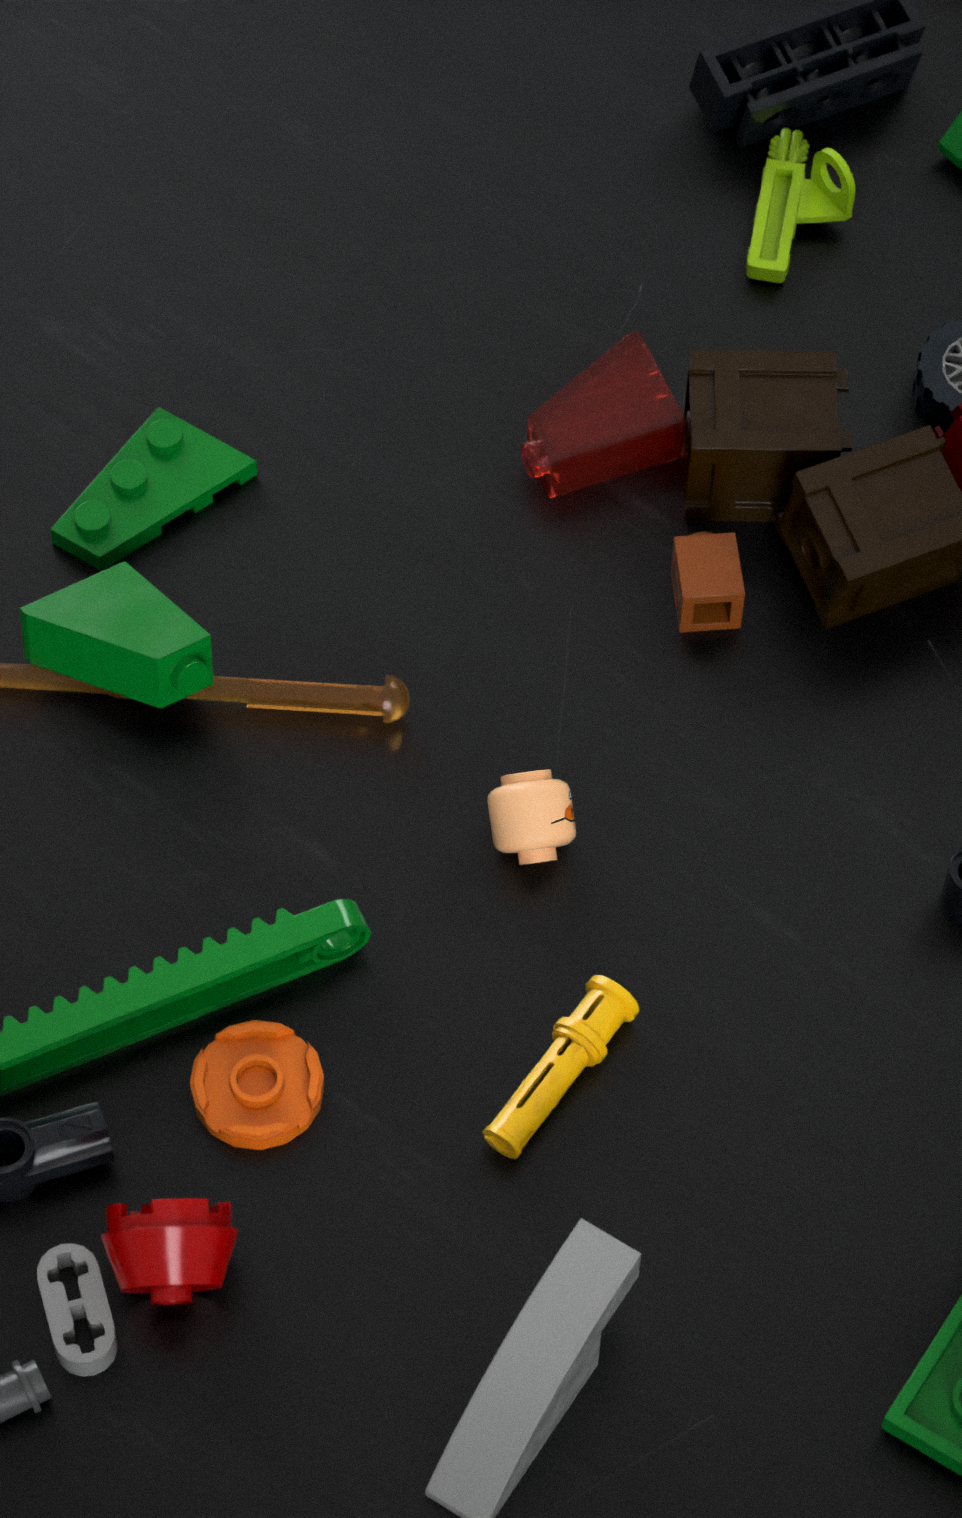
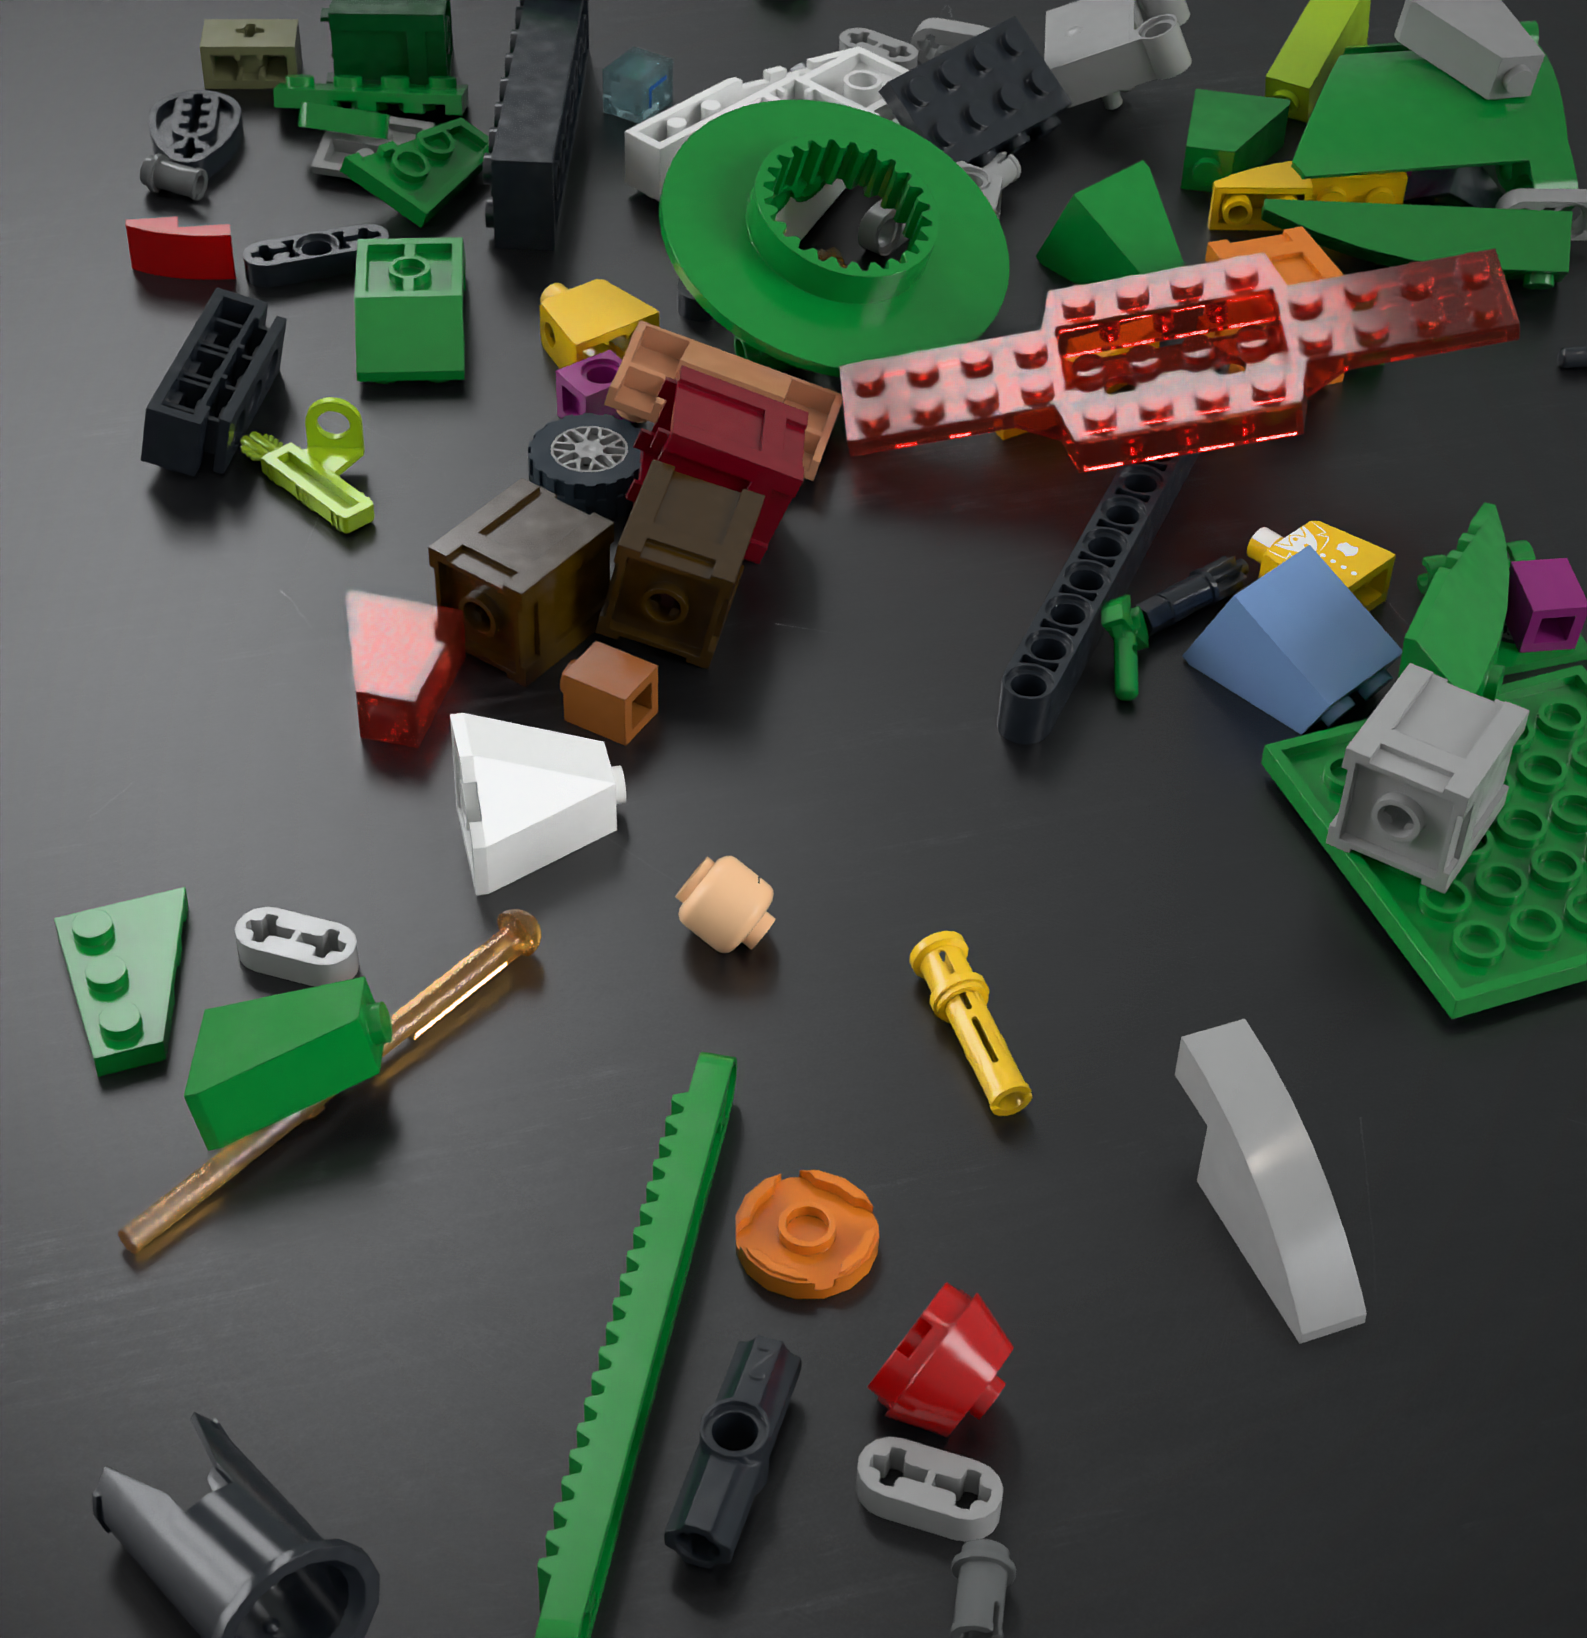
camera: 55 degrees left, 15 degrees down
(274, 568) = (296, 946): none -> light grey beam
(522, 606) = (528, 796): none -> white slope

